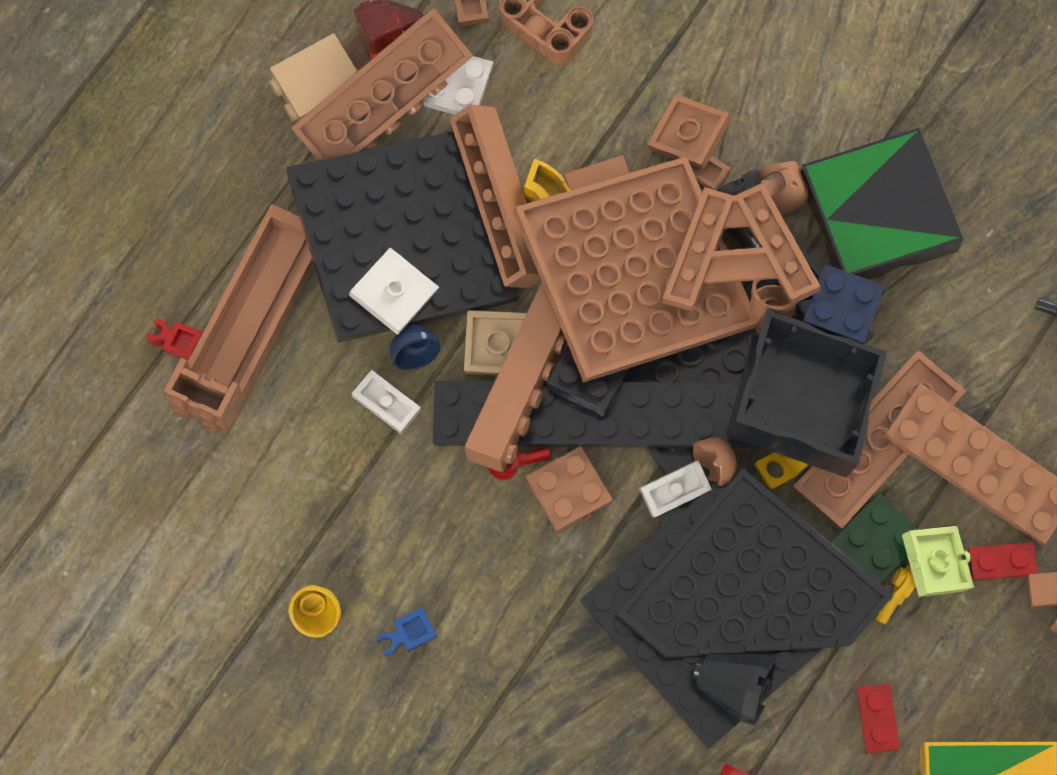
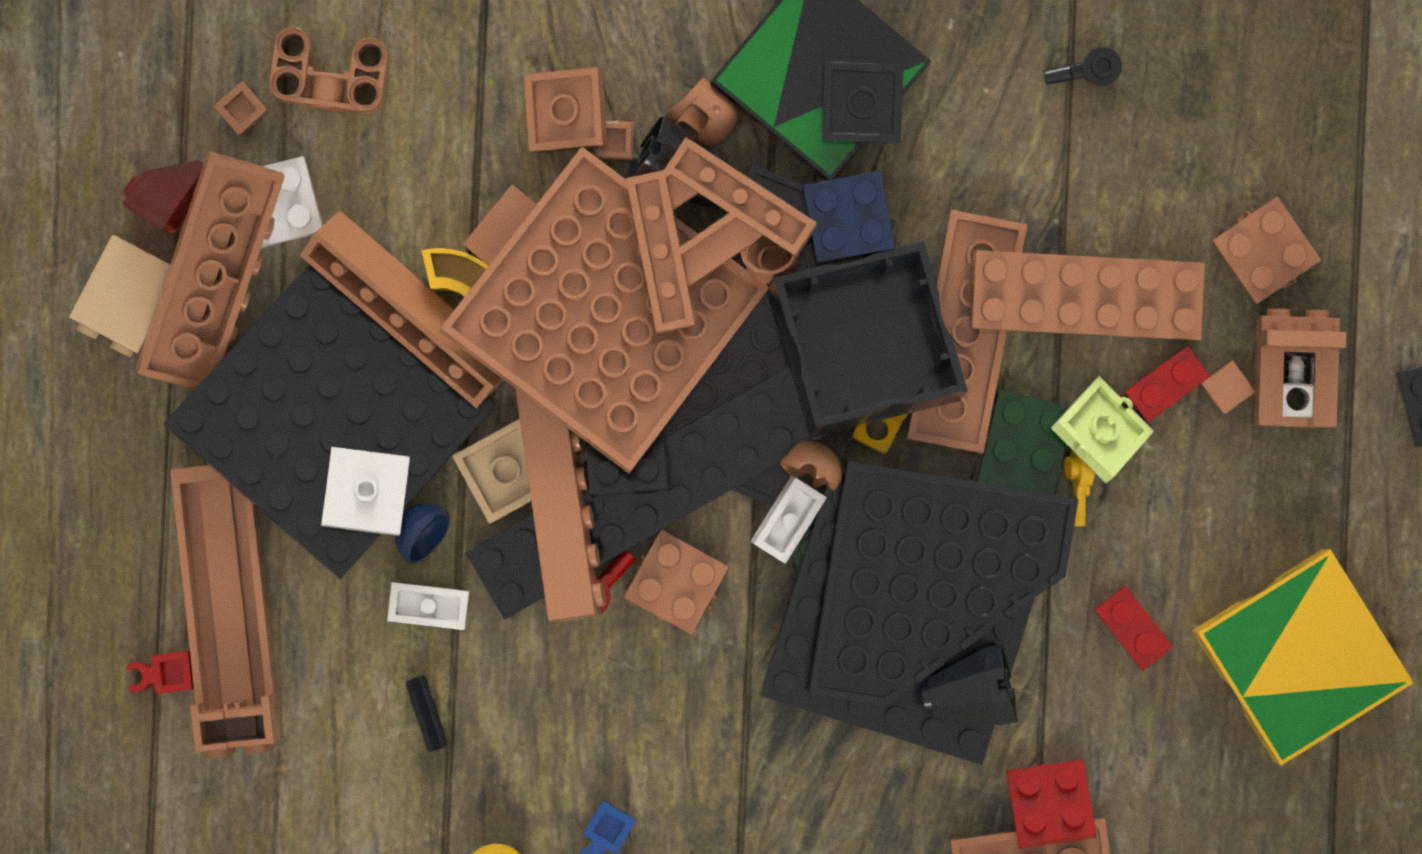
camera: 35 degrees left, 15 degrees up
(337, 475) = (426, 713): none -> black axle
(898, 235) = (862, 103): none -> black plate

